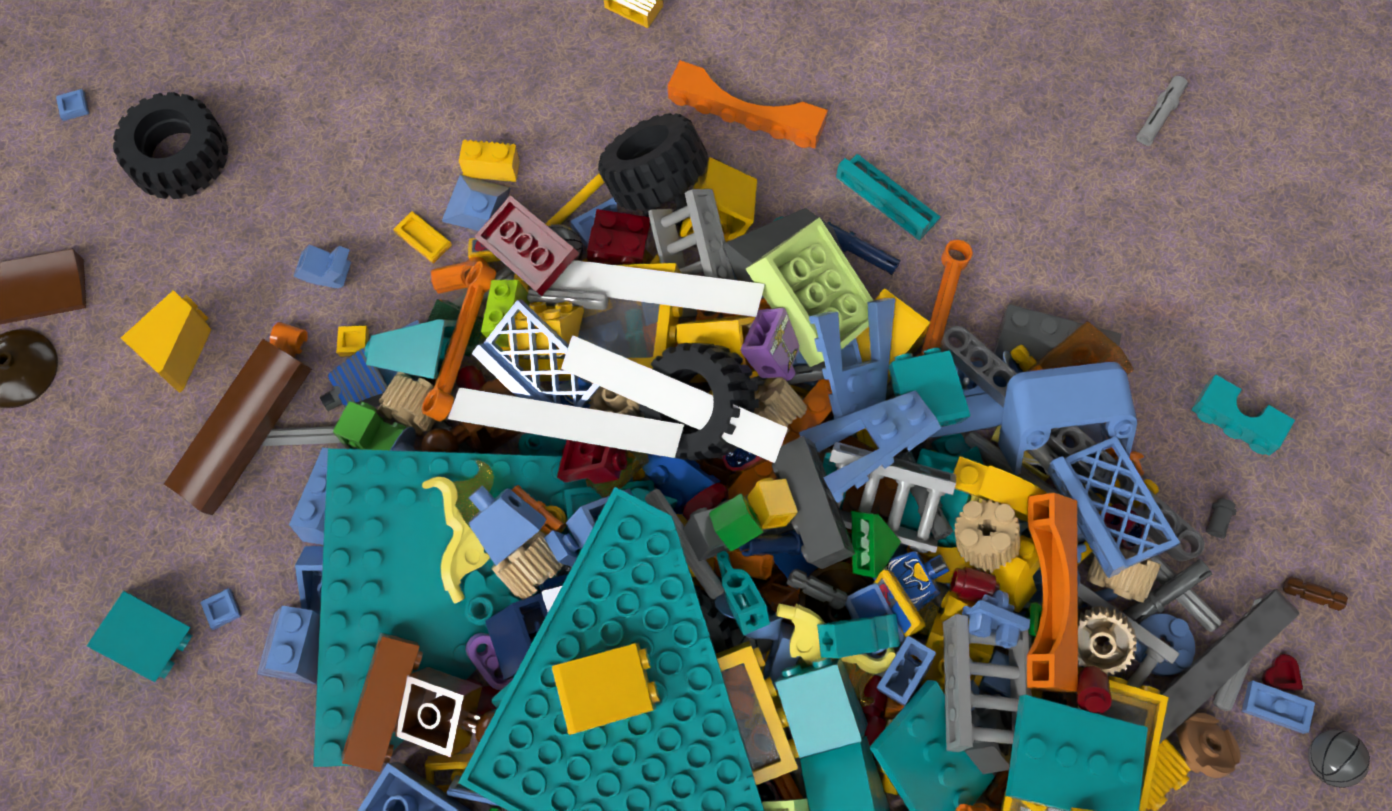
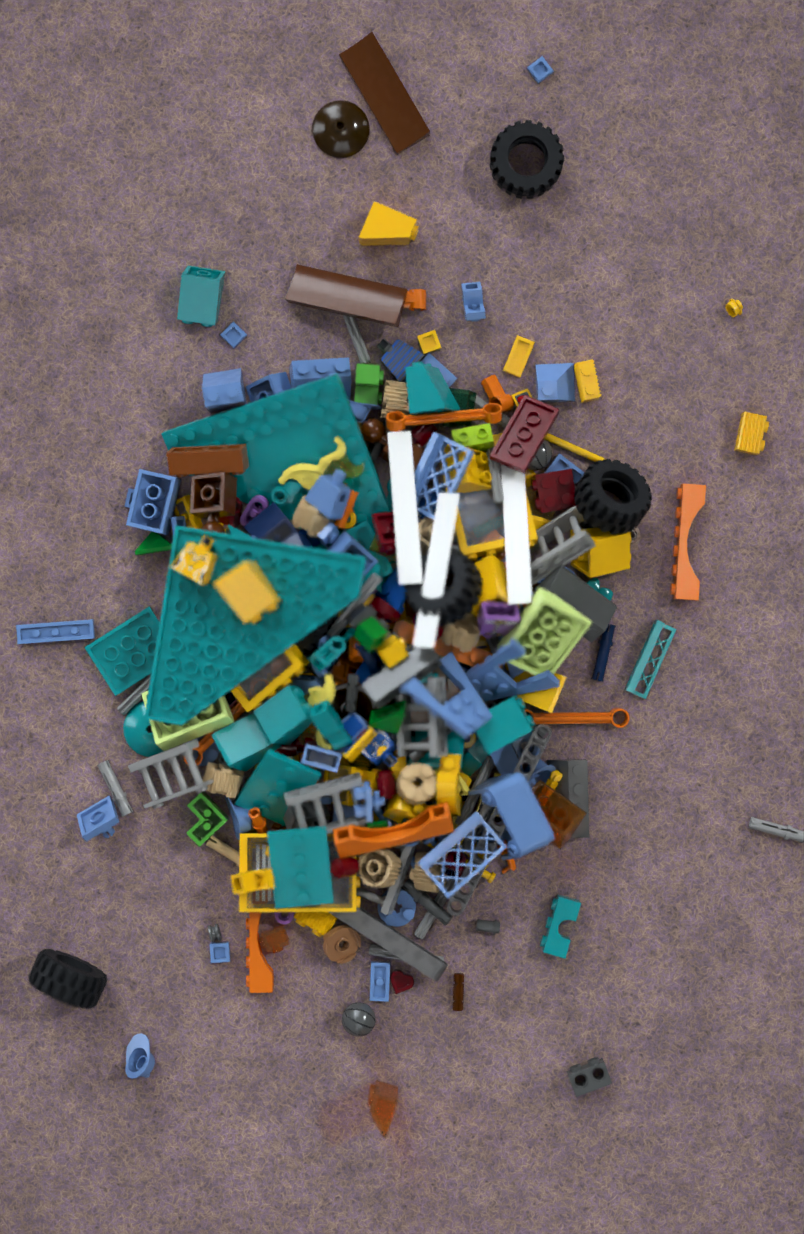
camera: 70 degrees right, 20 degrees up
(525, 761) = (197, 561): none -> yellow torso

